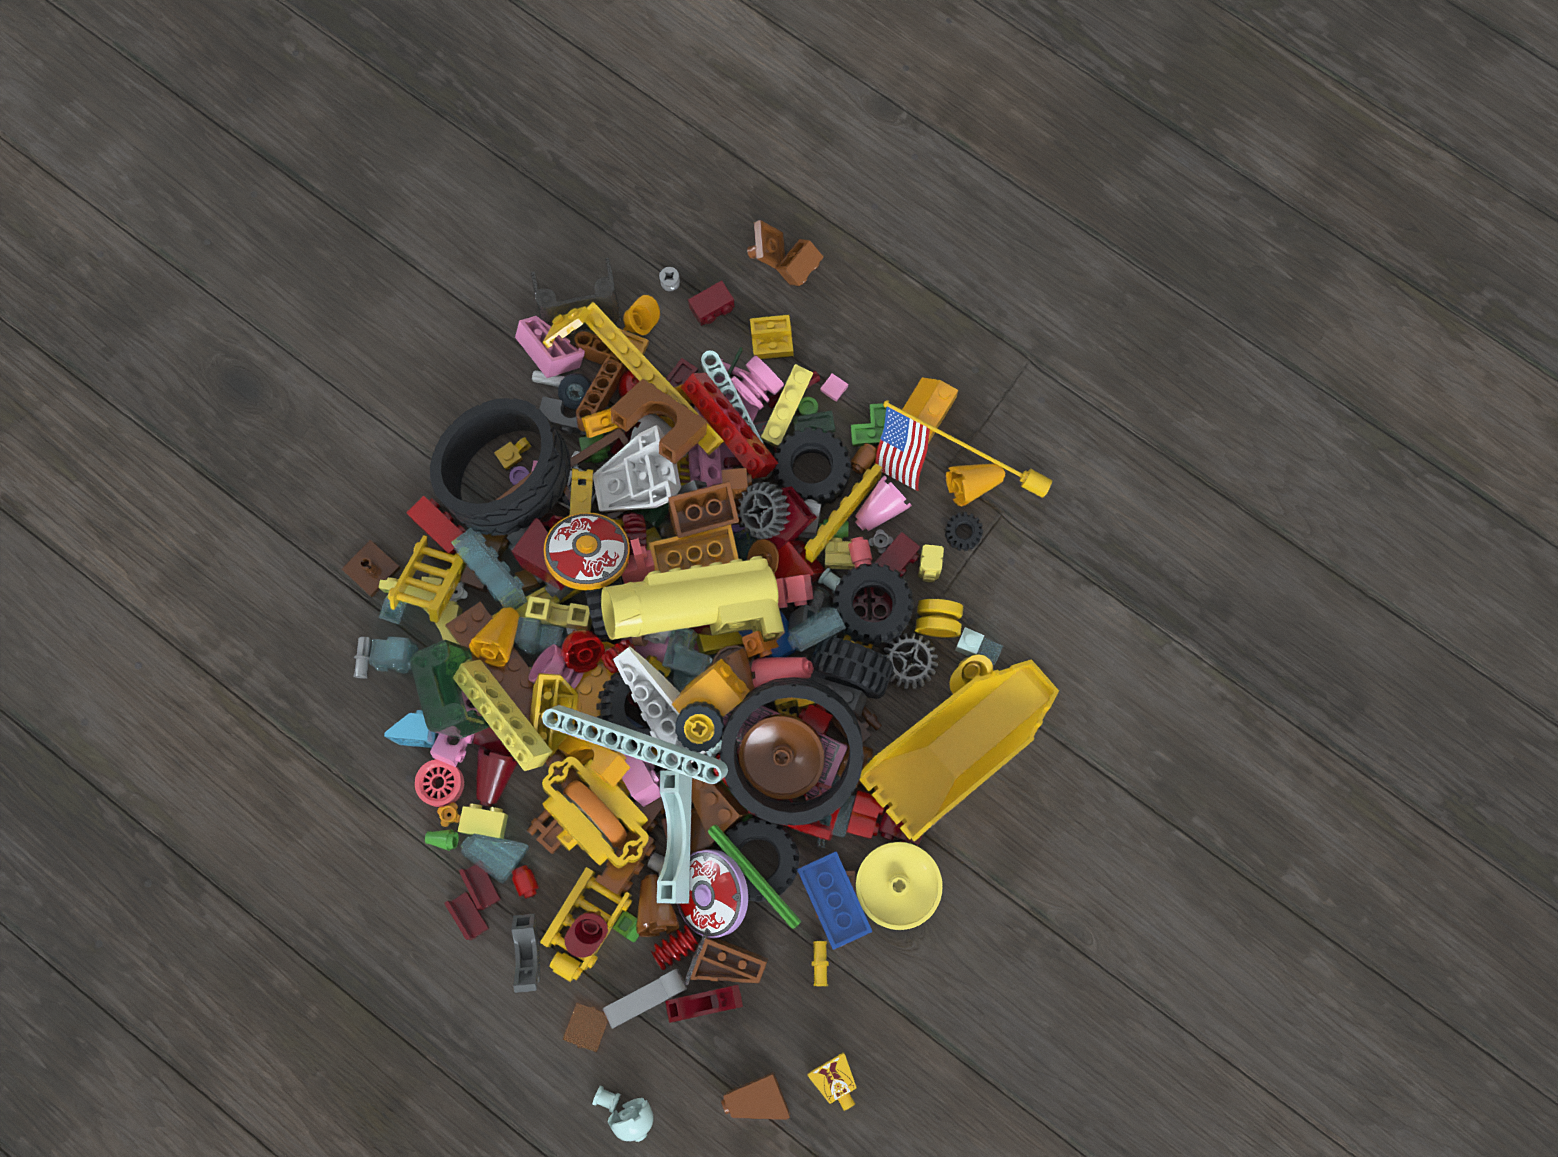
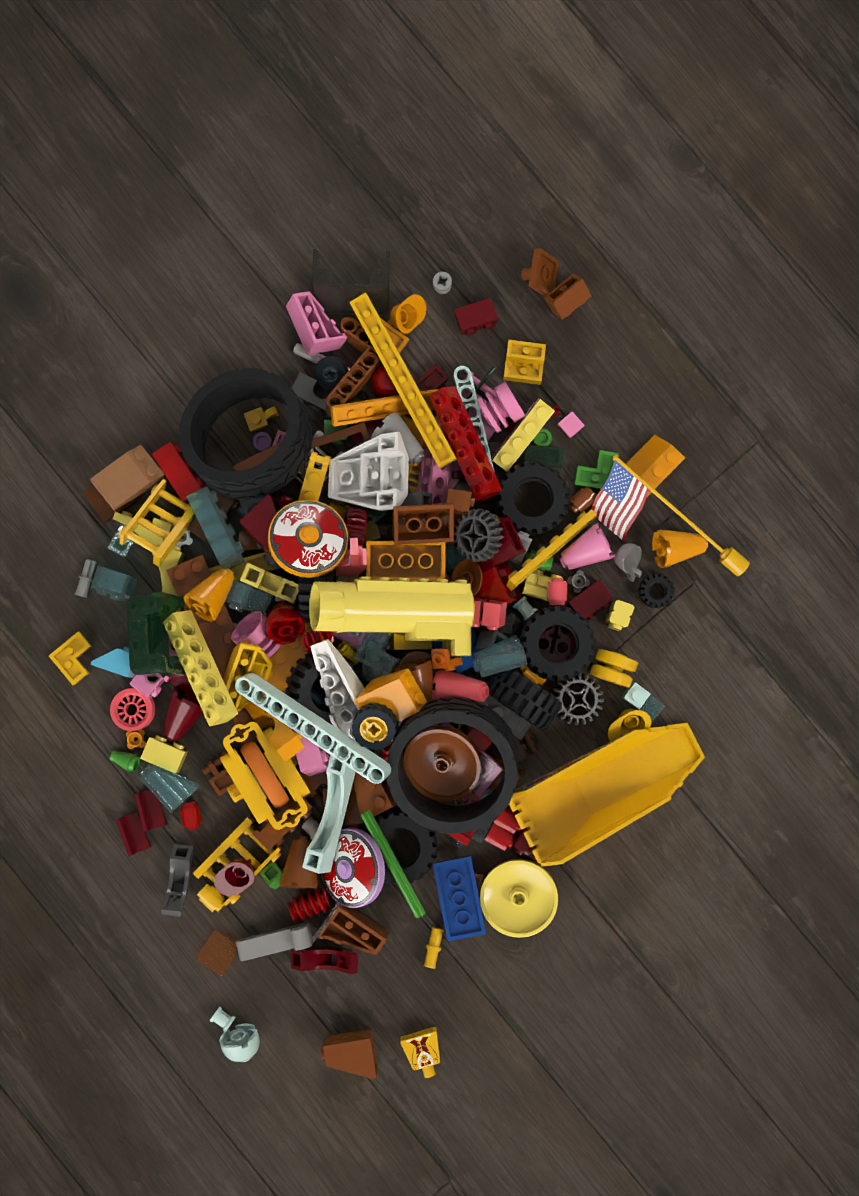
camera: 10 degrees right, 10 degrees up
(358, 743) = (66, 657): none -> yellow plate
(386, 541) = (127, 477): none -> medium nougat slope
(565, 324) = (334, 309): yellow wing -> none
(647, 400) = (395, 403): dark orange arch -> none
(926, 506) = (627, 559): none -> light grey piece

